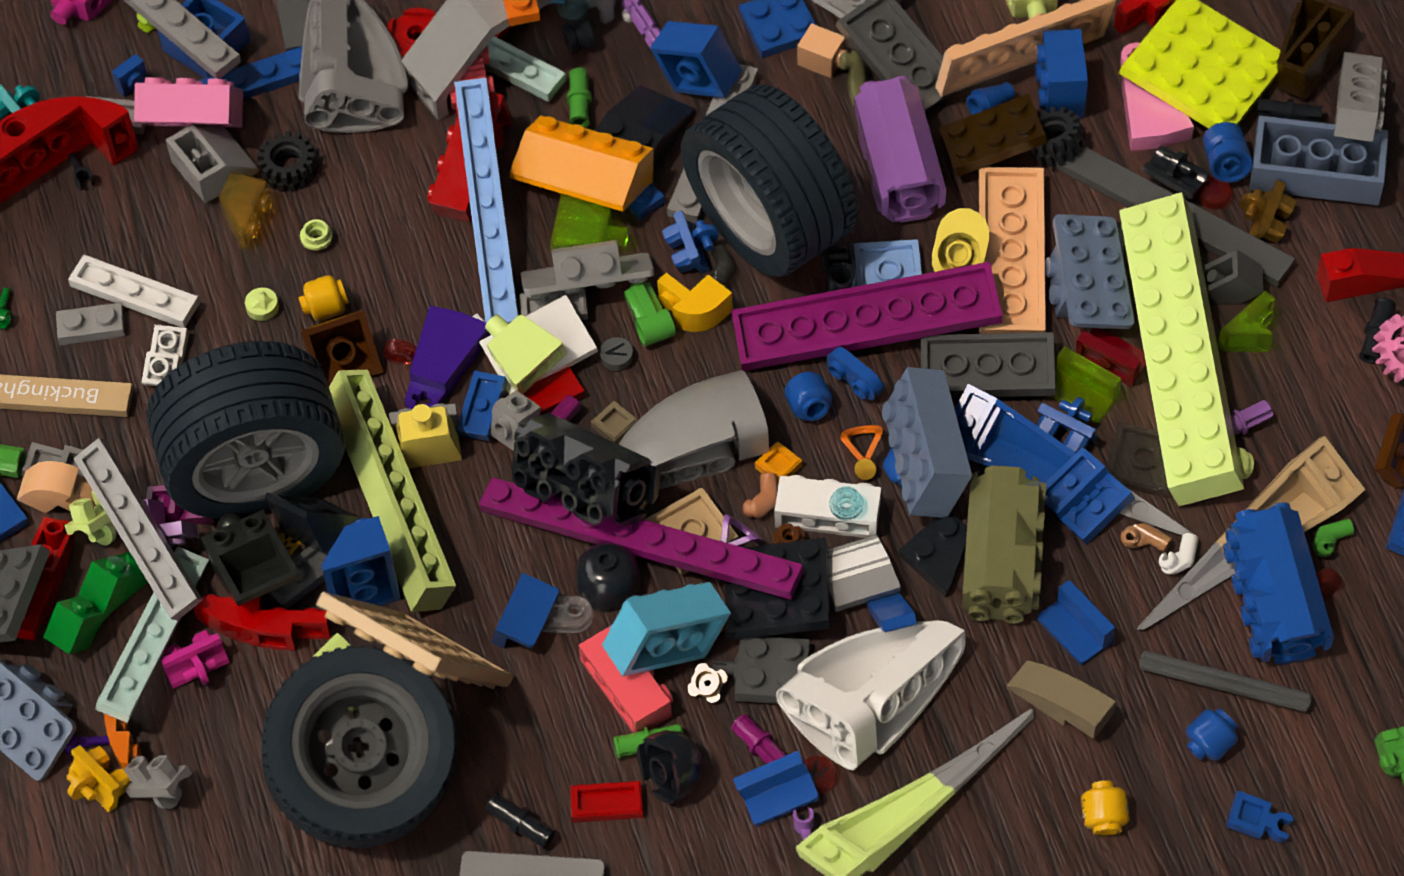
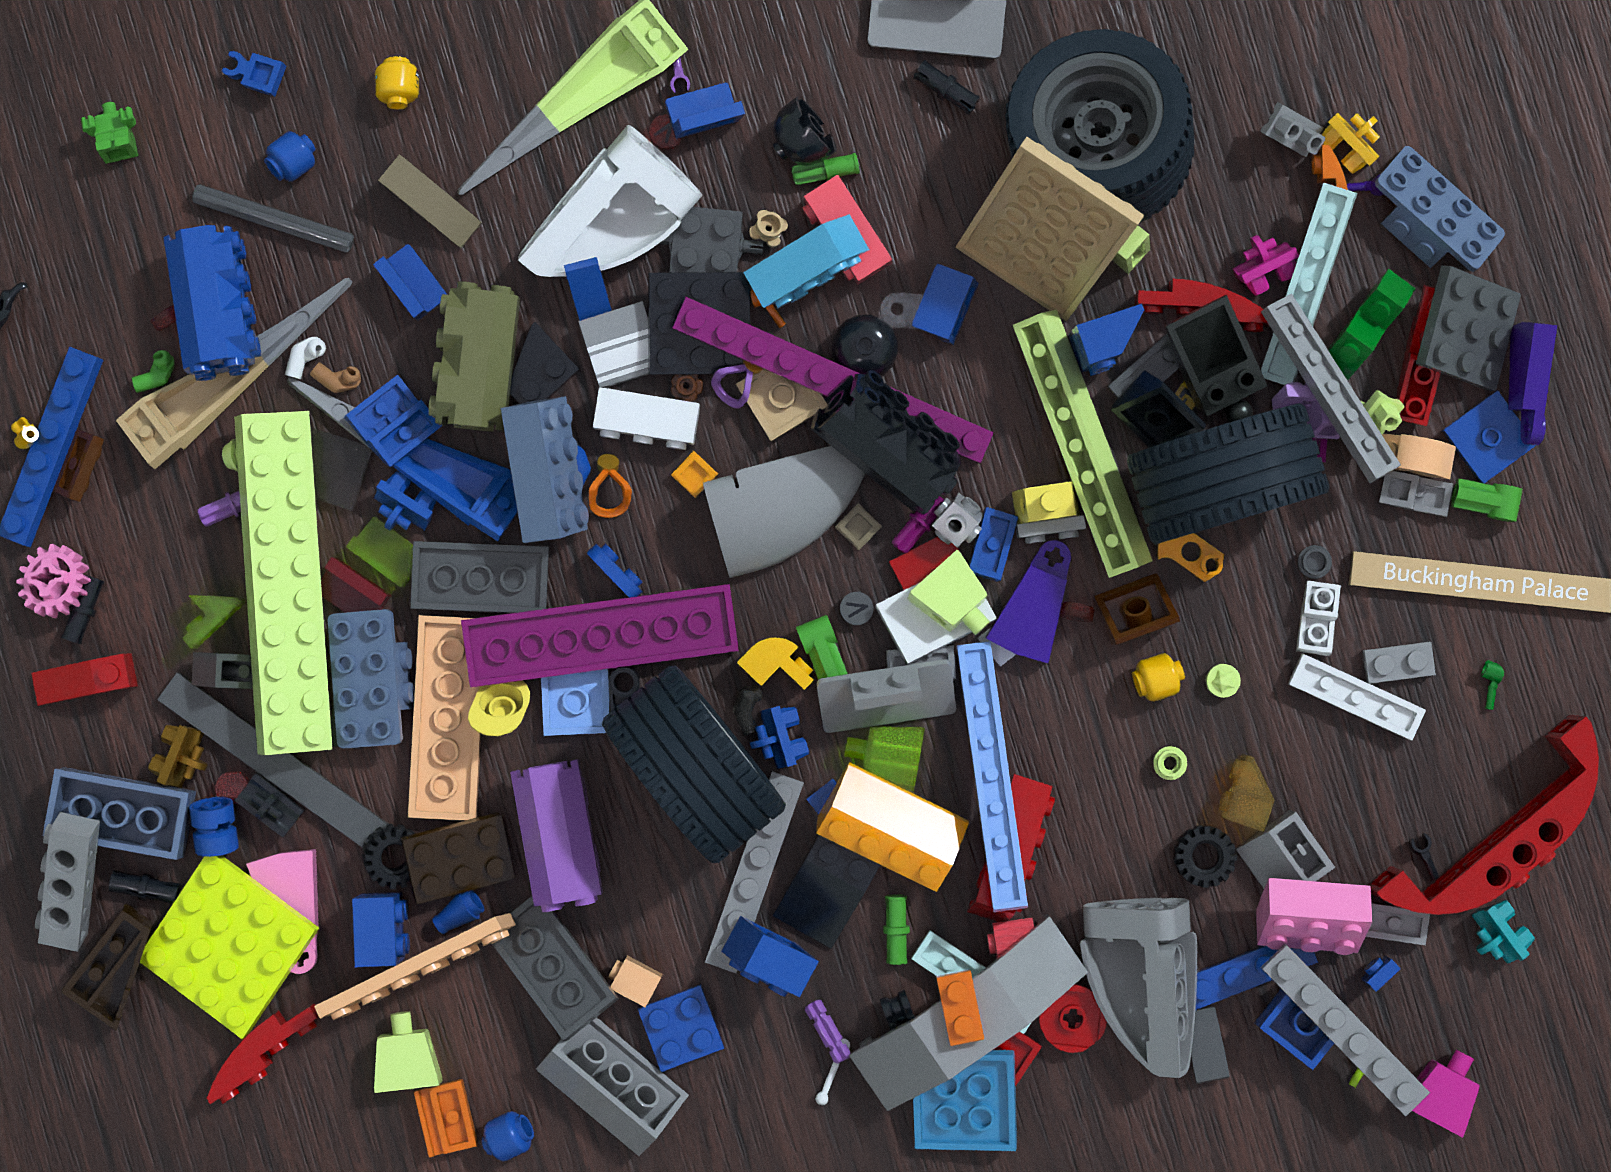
camera: 175 degrees right, 30 degrees up
(606, 801) = (865, 109): red tile -> none
(756, 739) = (718, 160): magenta axle -> none
(765, 500) = (707, 429): nougat arm -> none
(808, 396) = (662, 545): blue head -> none
(846, 495) = (619, 395): clear light blue plate -> none
(856, 73) = (600, 940): olive arm -> none

